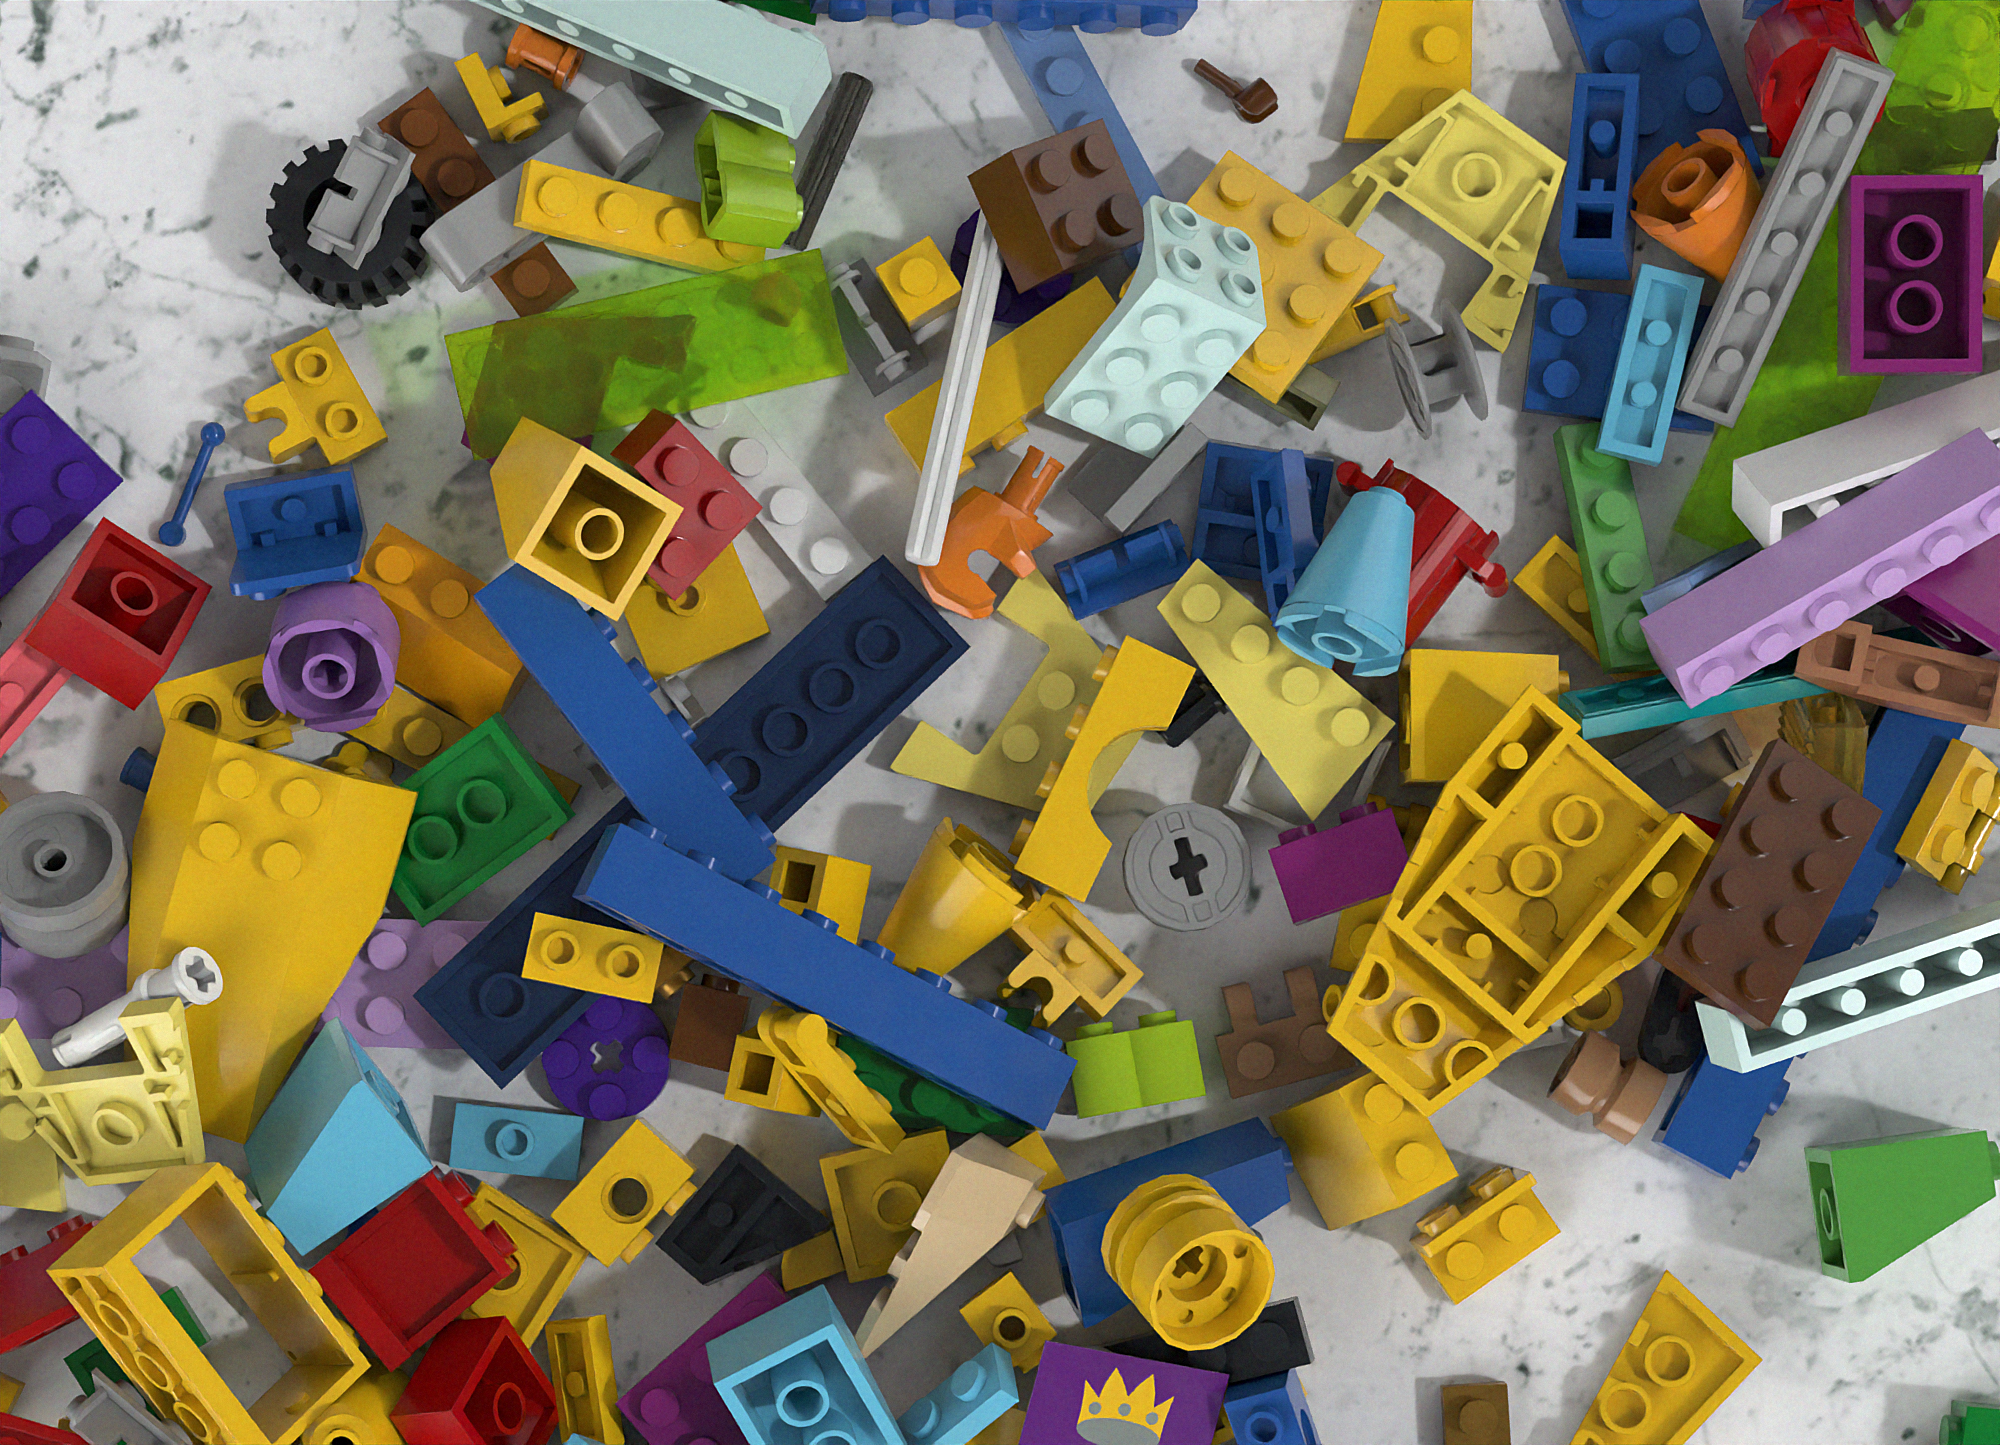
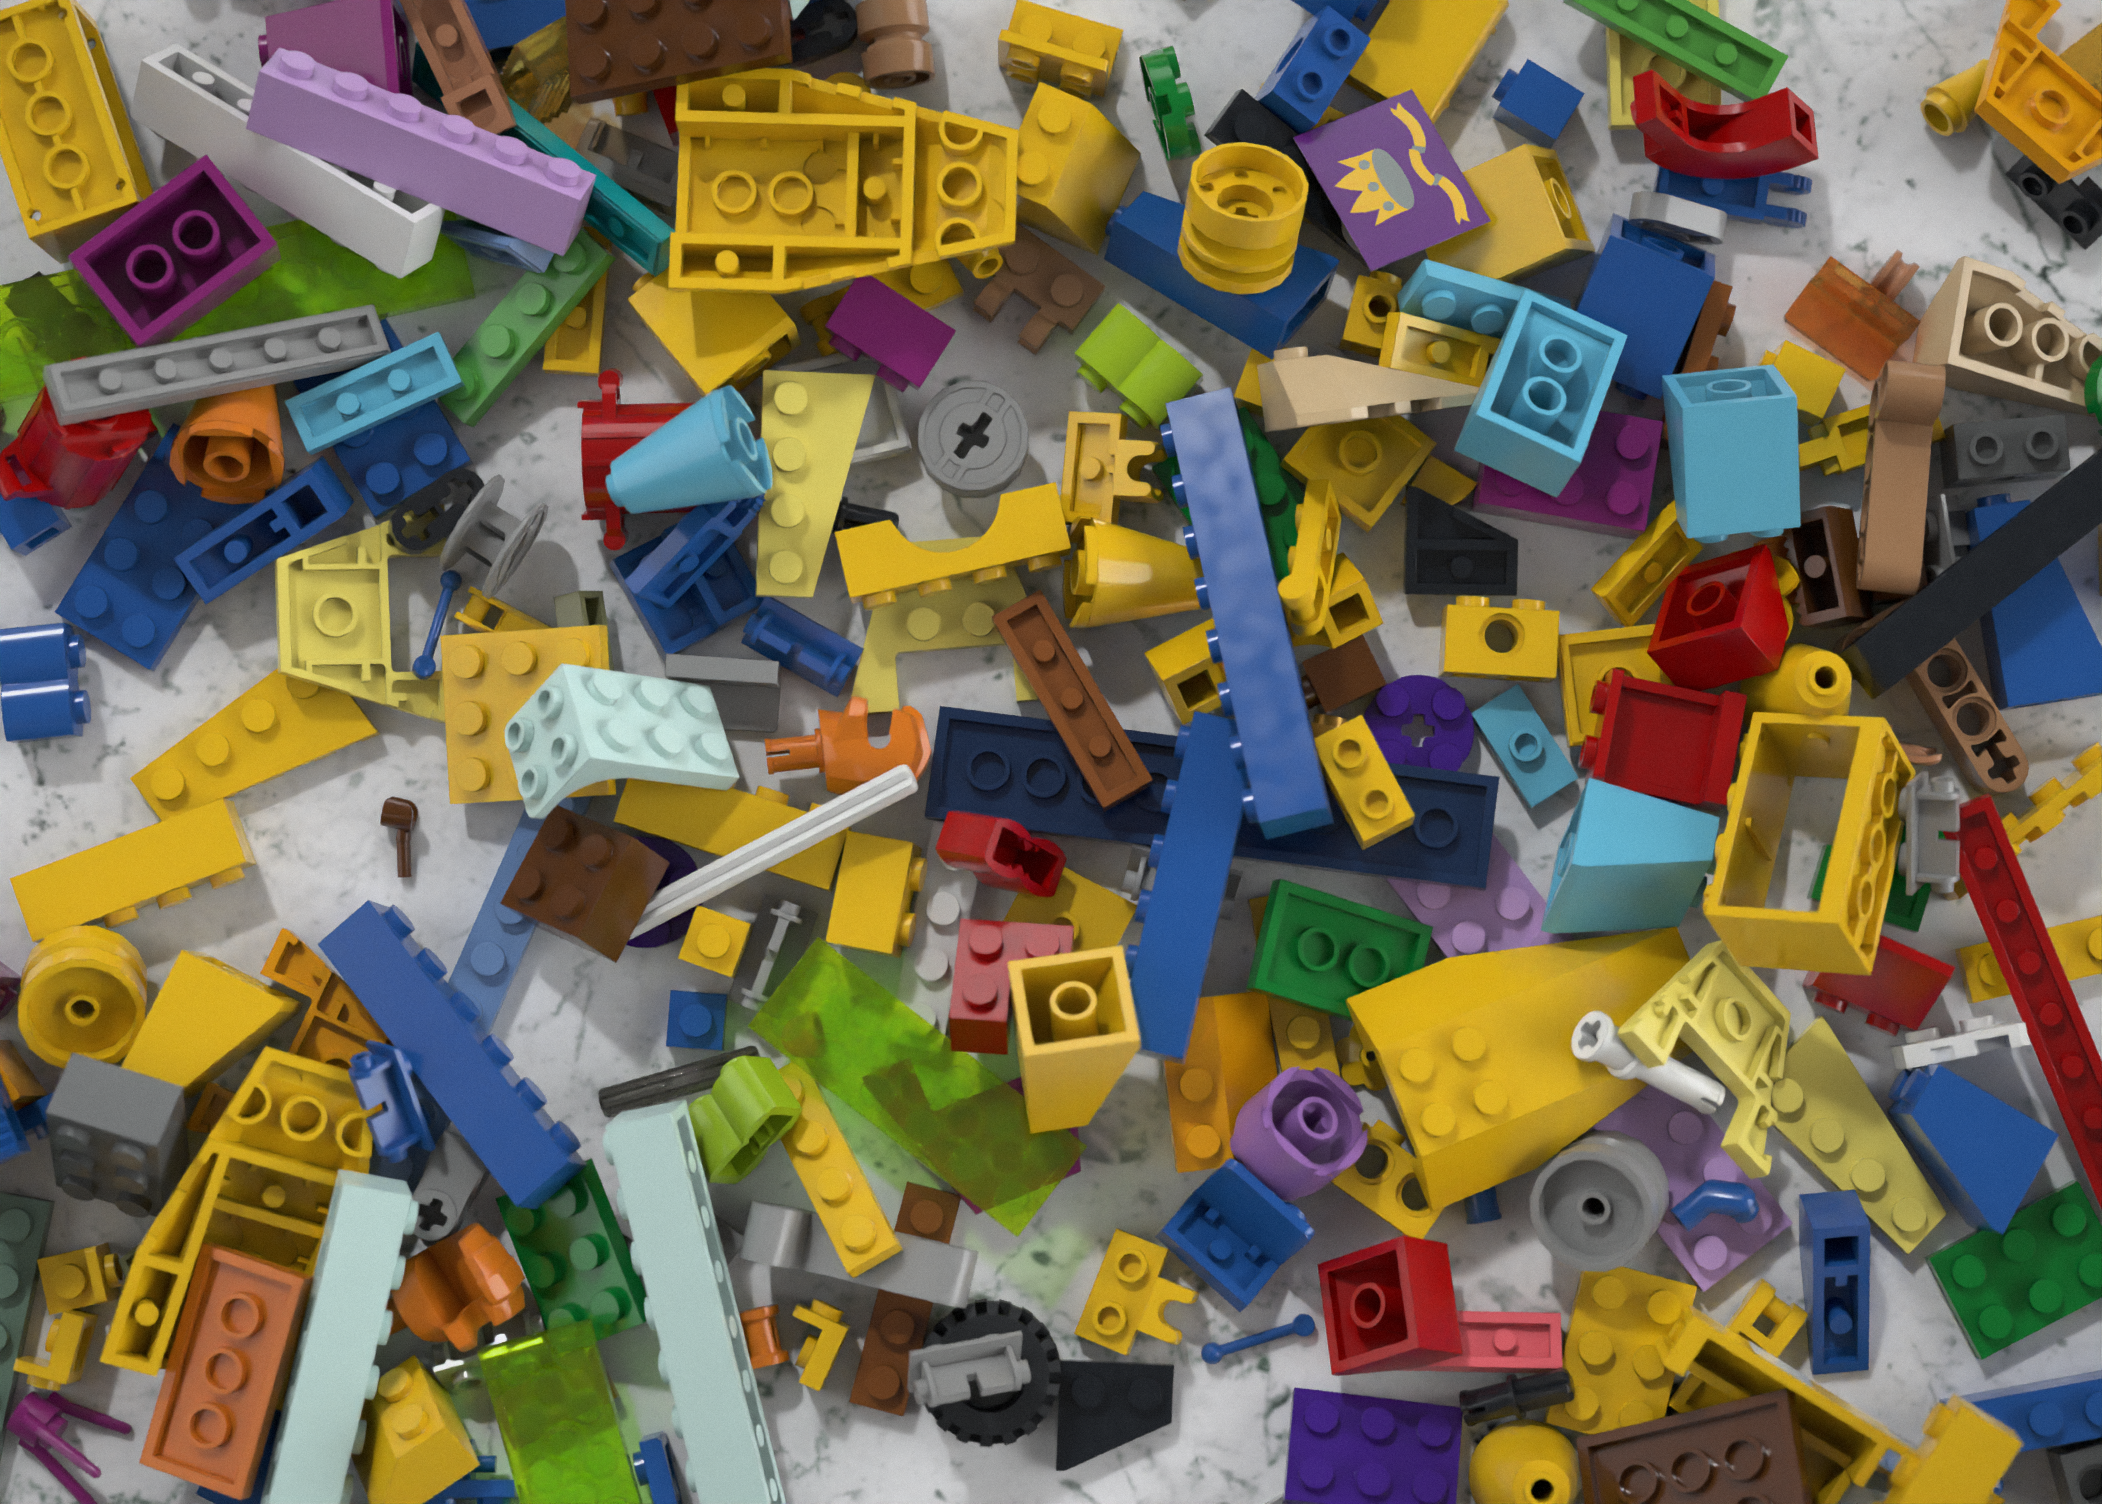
camera: 130 degrees left, 0 degrees up
(241, 309) = (1109, 1406): none -> black wing
(792, 590) = (1001, 853): none -> red brick
(847, 455) = (876, 895): none -> yellow brick
(866, 217) = (696, 1020): none -> blue plate
(878, 763) = (1072, 700): none -> dark orange plate
(929, 1347) = (1436, 349): none -> yellow plate
(1350, 1288) = (1170, 104): none -> green plate
(1370, 222) = (425, 665): none -> blue hinge
(1516, 337) = (429, 500): none -> black beam

